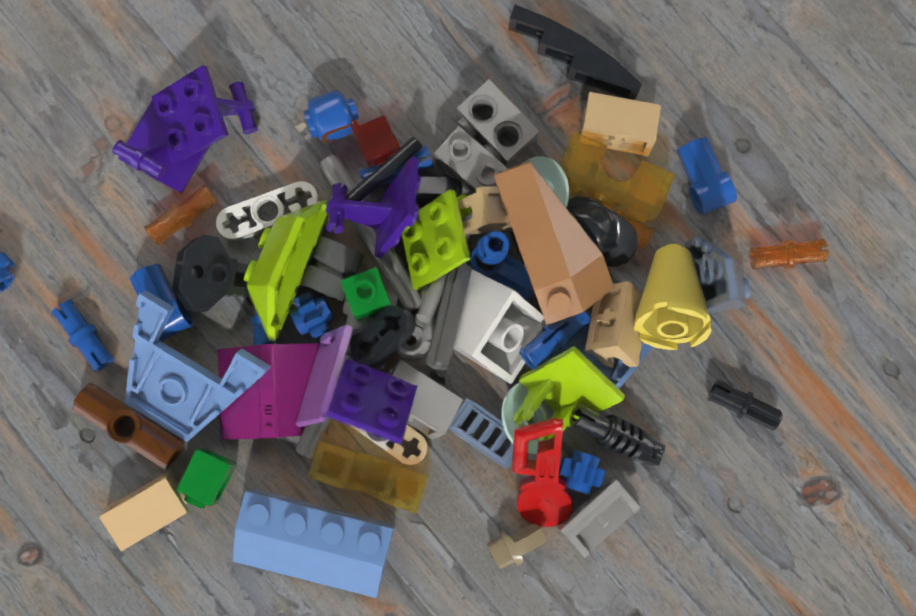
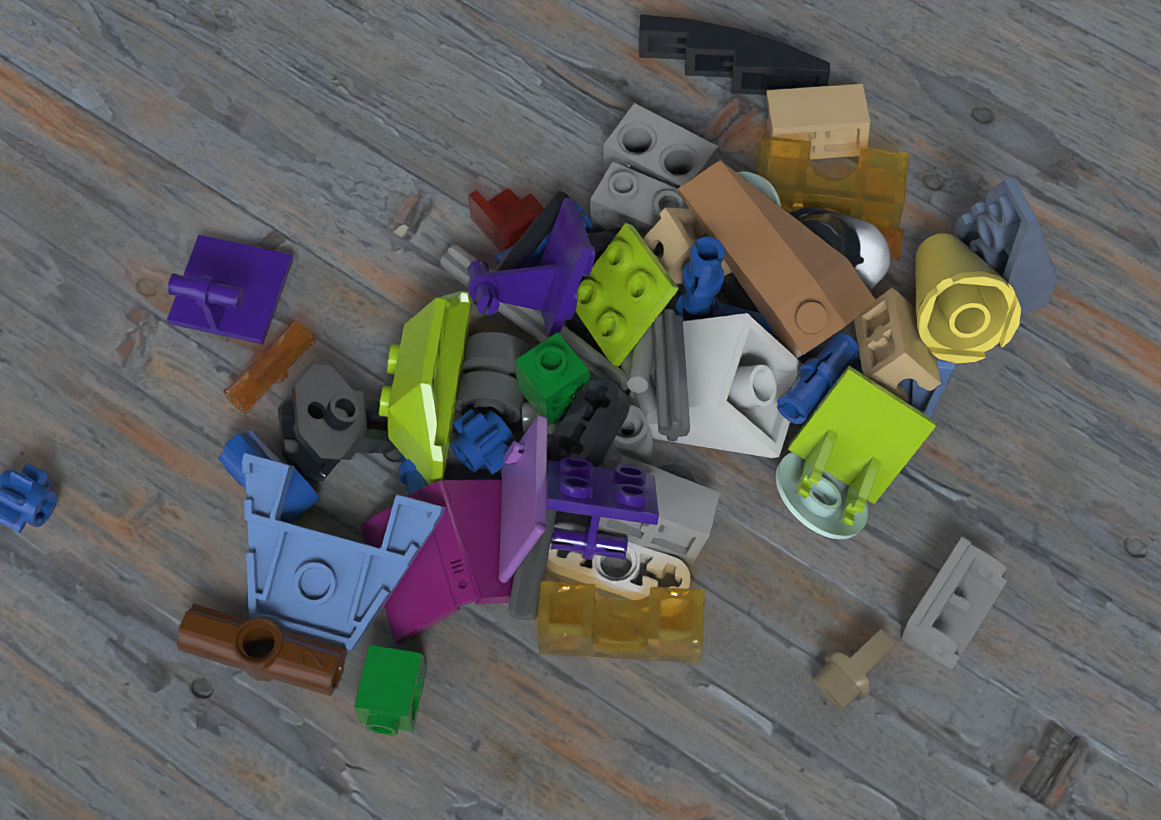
camera: 10 degrees left, 20 degrees down
(82, 335) = (168, 552): blue pin -> none
(144, 510) = (312, 756): tan hinge -> none
(194, 115) = (264, 232): dark purple plate -> none
(238, 210) = (389, 316): white beam -> none
(312, 542) = (565, 739): medium blue slope -> none
(330, 116) = (439, 199): blue head -> none
(462, 413) = (754, 512): sand blue slope -> none
(542, 494) = (868, 587): red piece -> none
(581, 471) = (911, 547): blue gear -> none
(619, 436) = (946, 486): black hinge -> none
(708, 184) = (954, 163): blue piece -> none
(745, 405) = (1100, 412): black axle -> none
(788, 254) = (1090, 219): clear orange pin -> none

